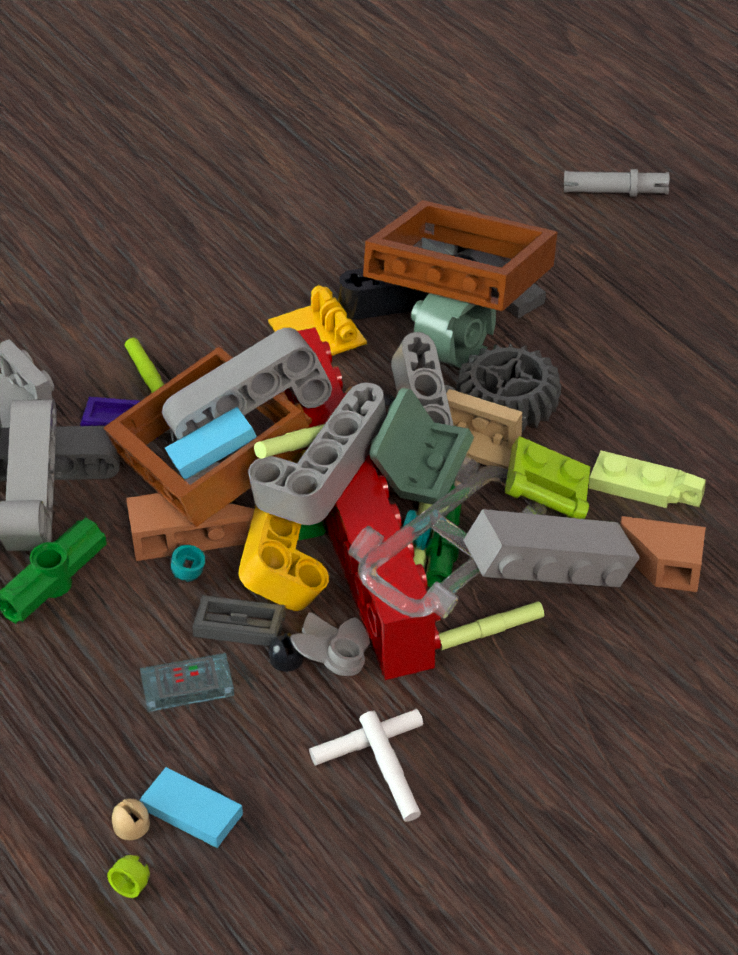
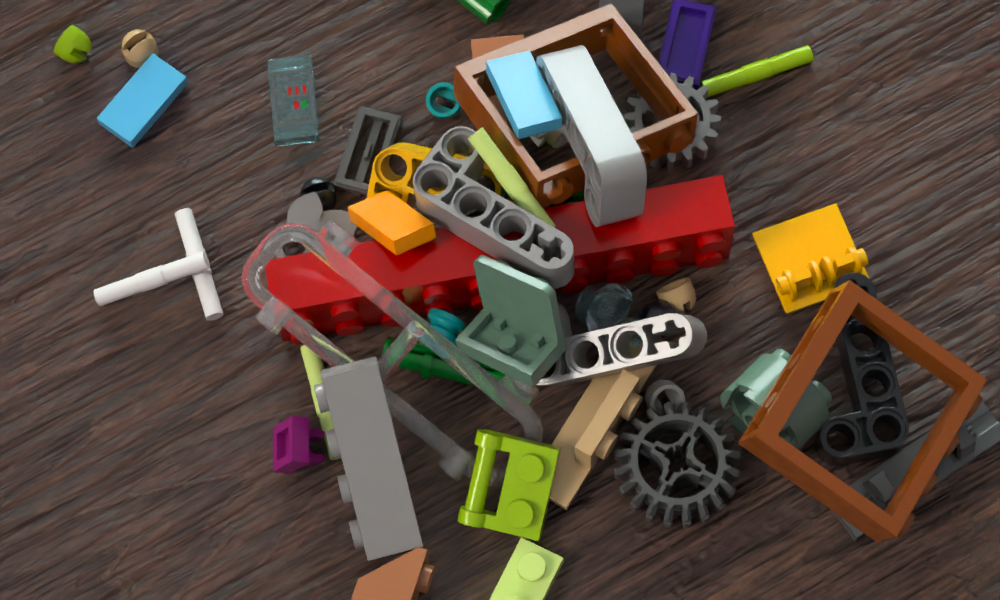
camera: 100 degrees right, 25 degrees up
(334, 536) = (392, 222): none -> light orange tile
(541, 633) = (292, 445): none -> magenta tile

